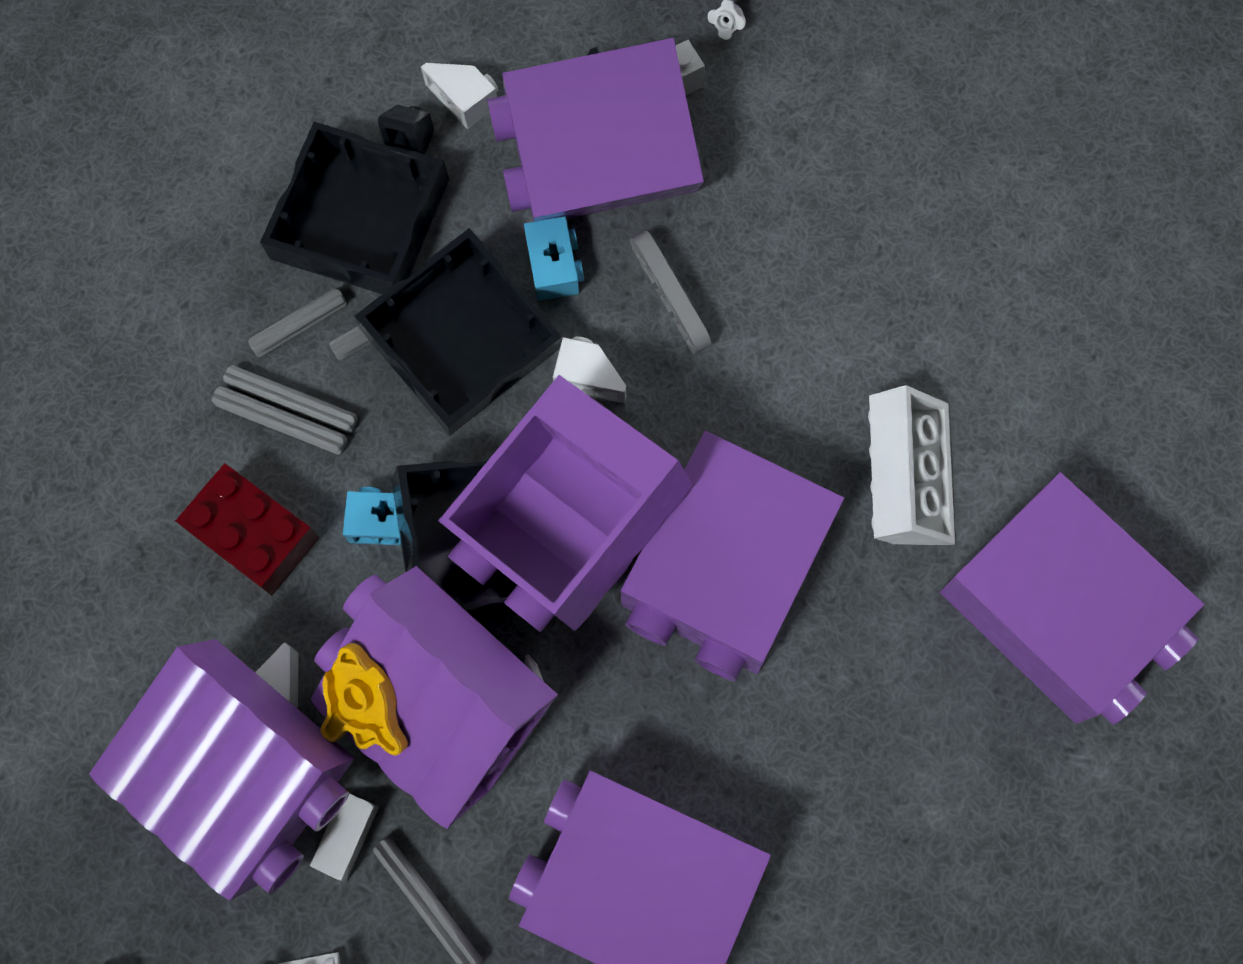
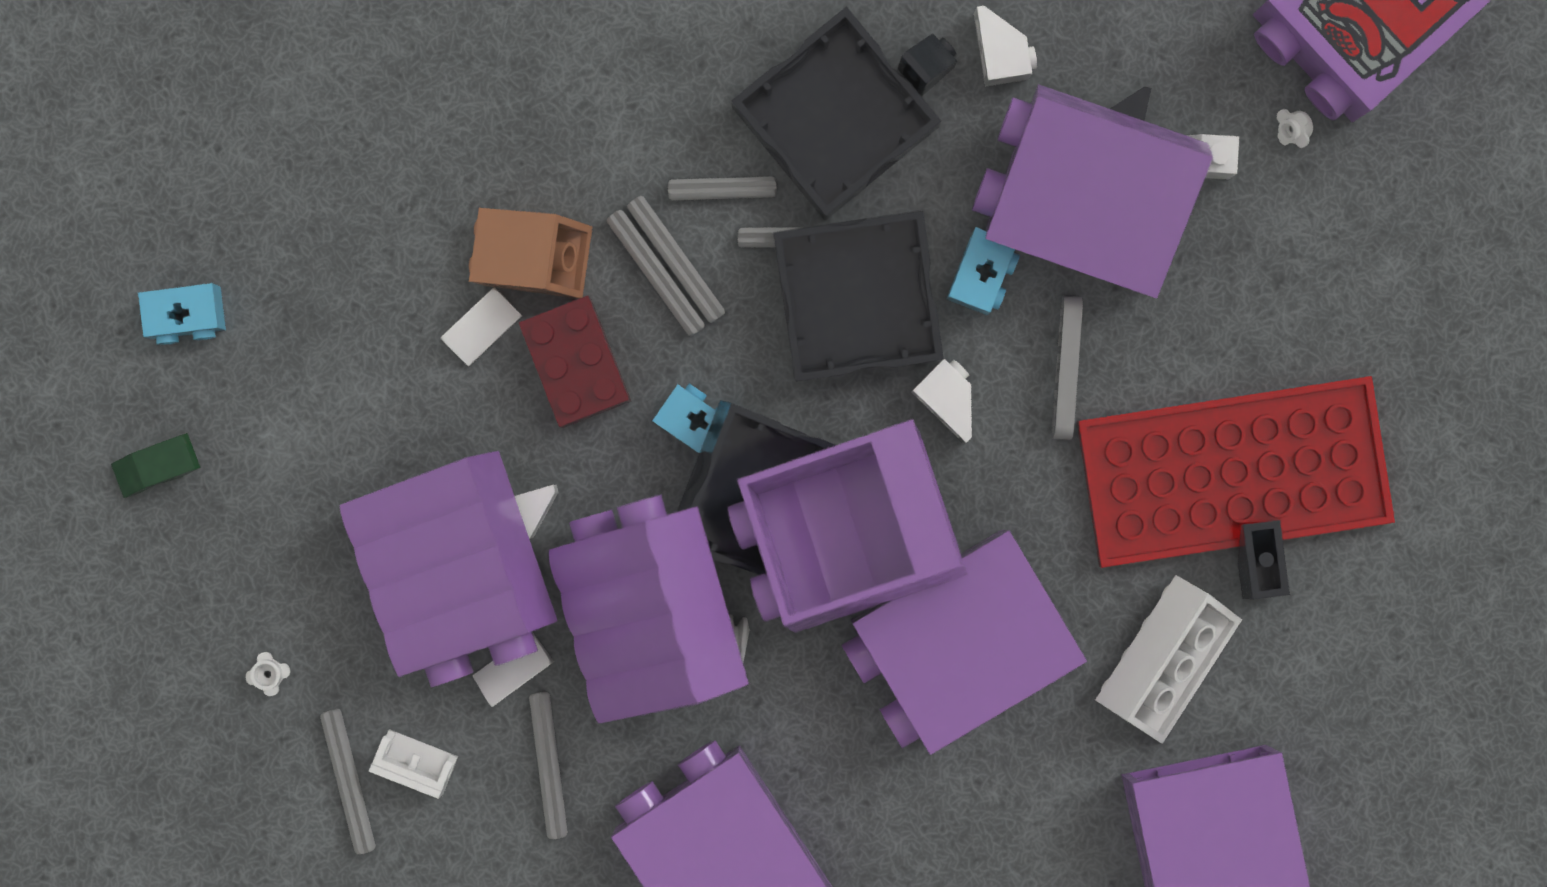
camera: 30 degrees right, 15 degrees up
(148, 552) = (481, 326): none -> white slope
(155, 461) = (530, 252): none -> nougat slope
(361, 702) = (590, 590): yellow tile -> none
(858, 292) = (1202, 469): none -> red plate
(931, 340) = (1262, 561): none -> black slope

